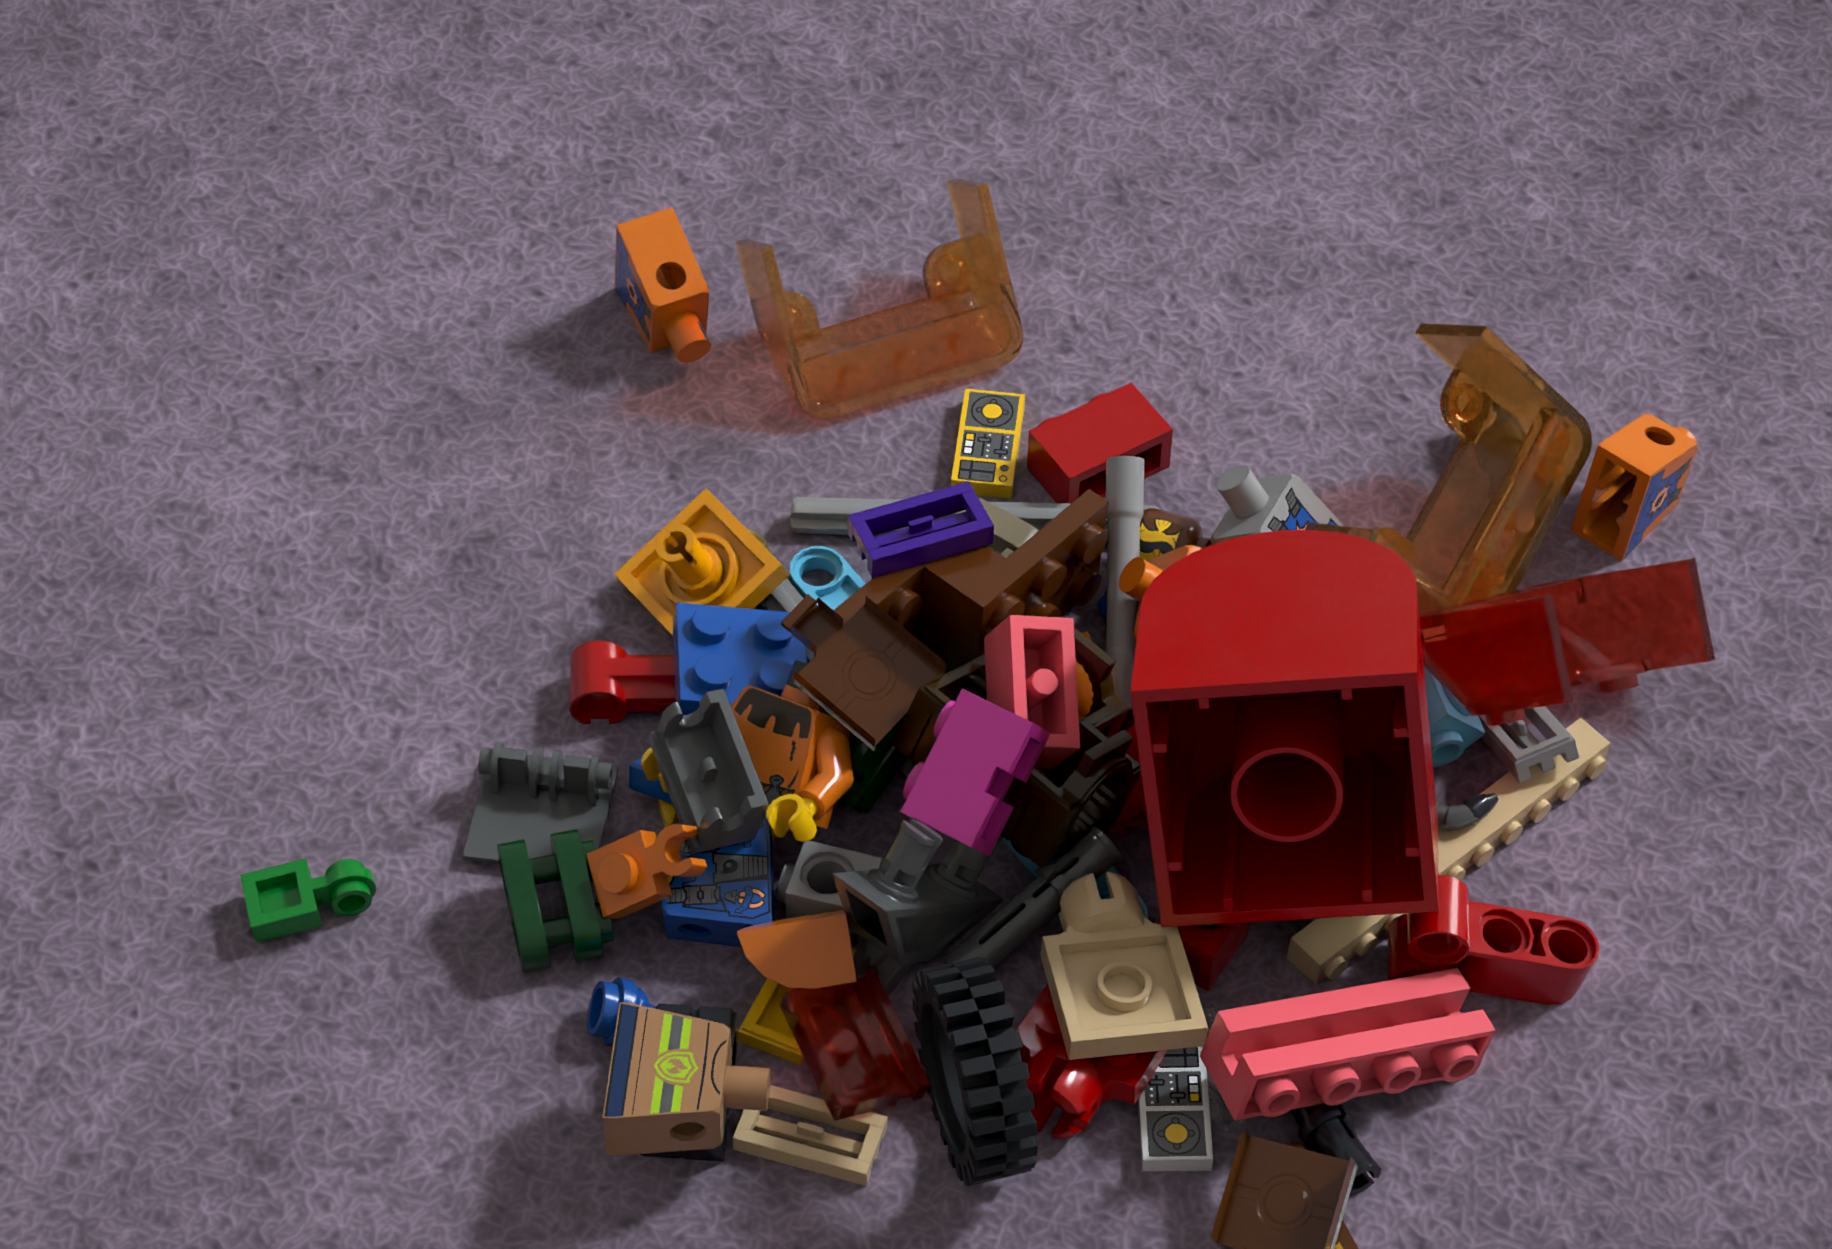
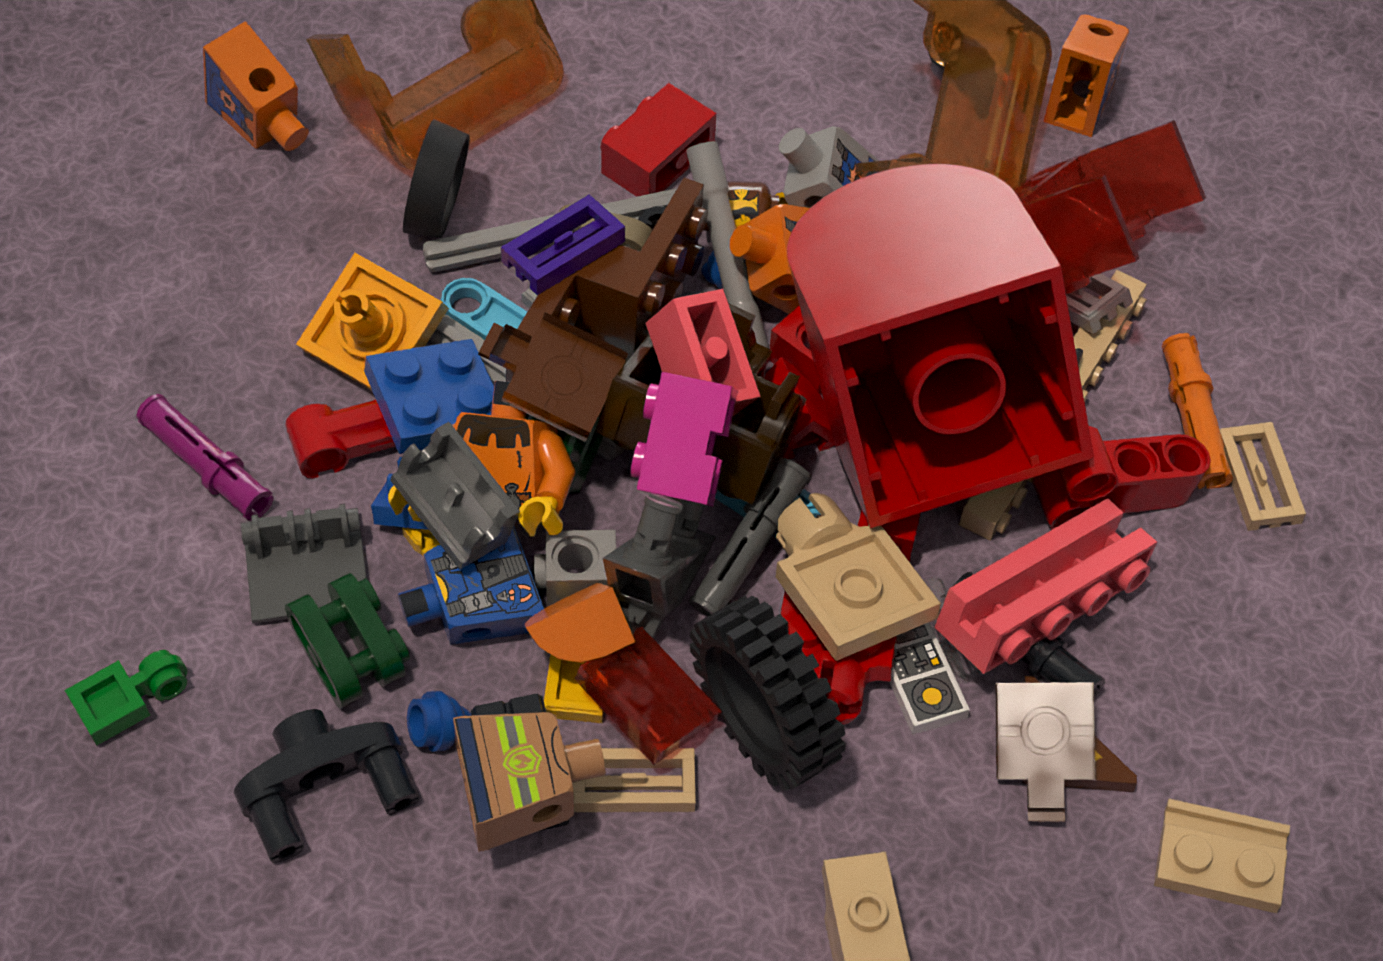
camera: 20 degrees left, 5 degrees up
(473, 1010) = (309, 754): none -> black connector
(484, 688) = (219, 470): none -> magenta pin
(636, 869) = (416, 594): orange plate -> none
(825, 431) = (436, 180): none -> black tyre
(989, 442) = (563, 159): tile -> none
(1617, 881) = (1192, 392): none -> orange pin
(1661, 1041) = (1270, 515): none -> tan tile

